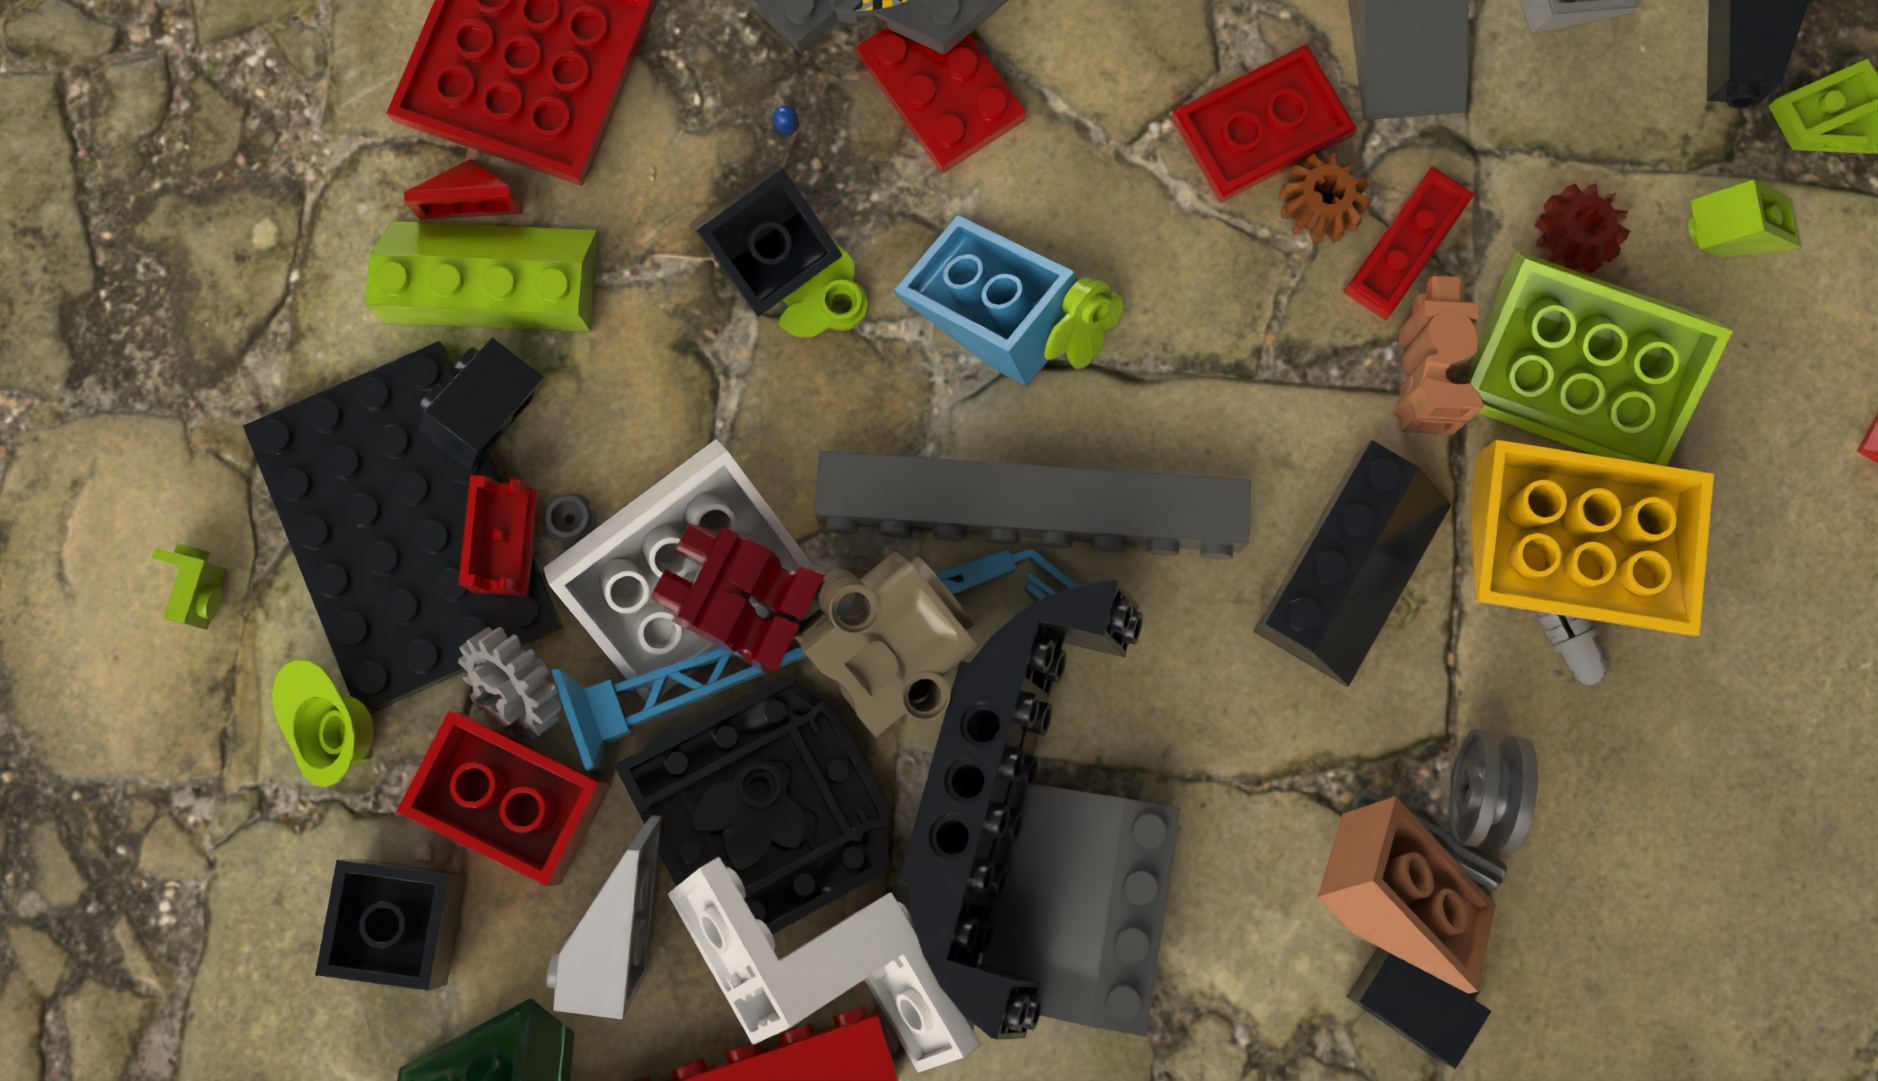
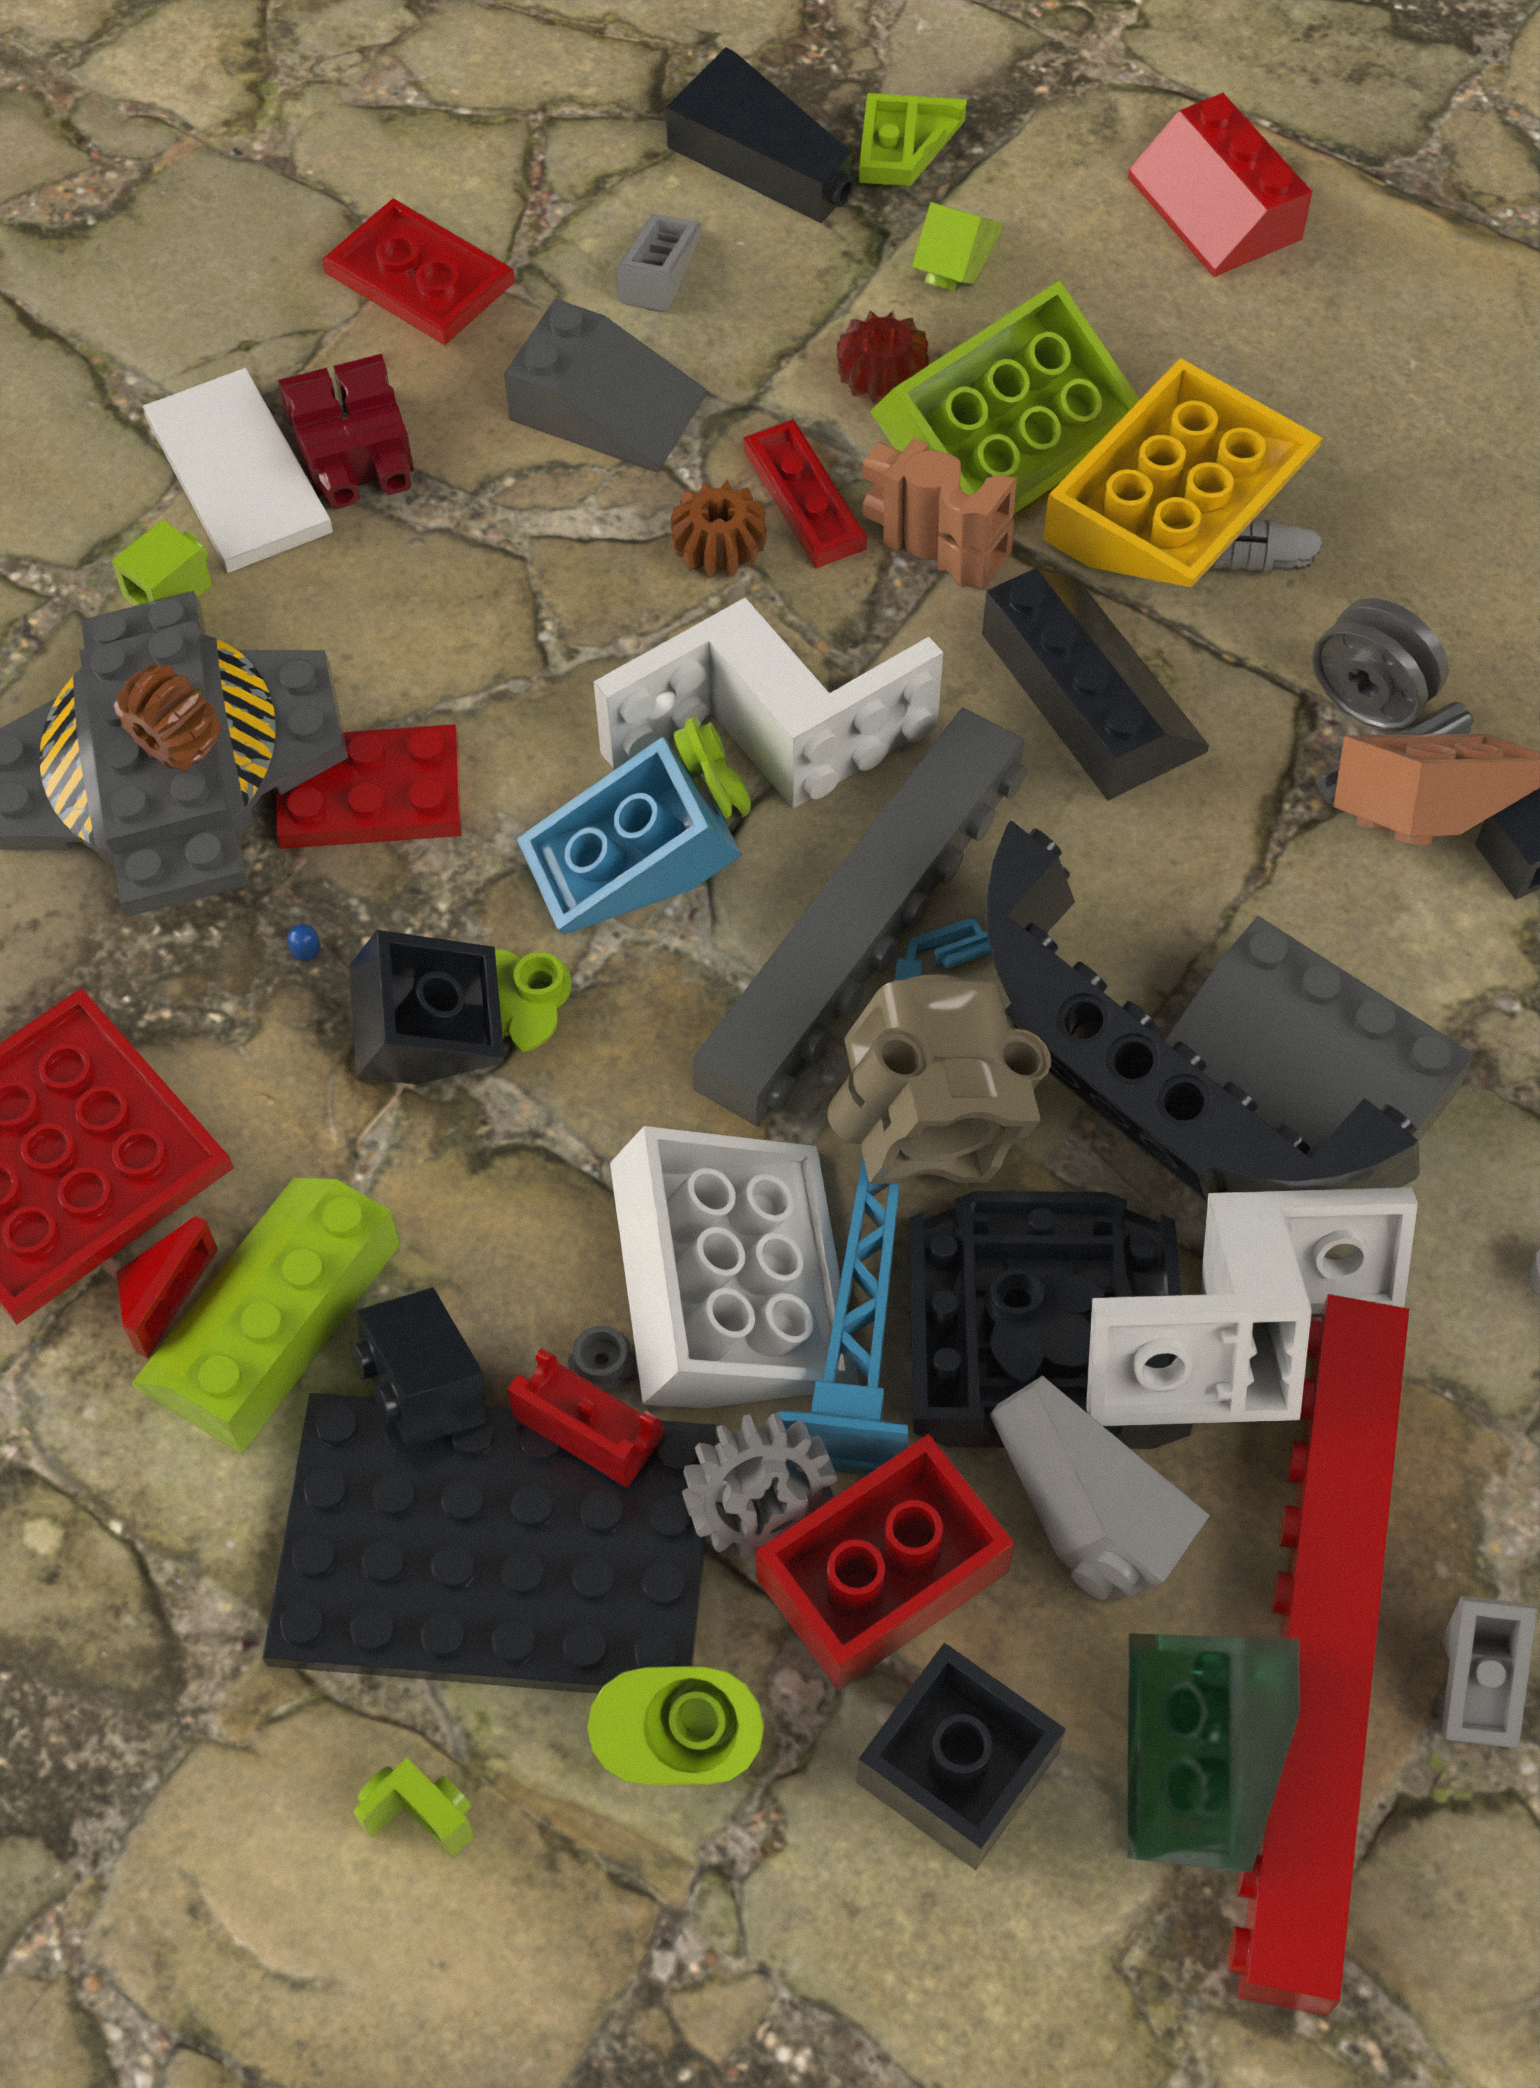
camera: 60 degrees left, 20 degrees down
(721, 594) = (808, 1199): dark red hips -> none
(1184, 287) = (769, 702): none -> white bracket
(1263, 123) = (606, 547): red tile -> none

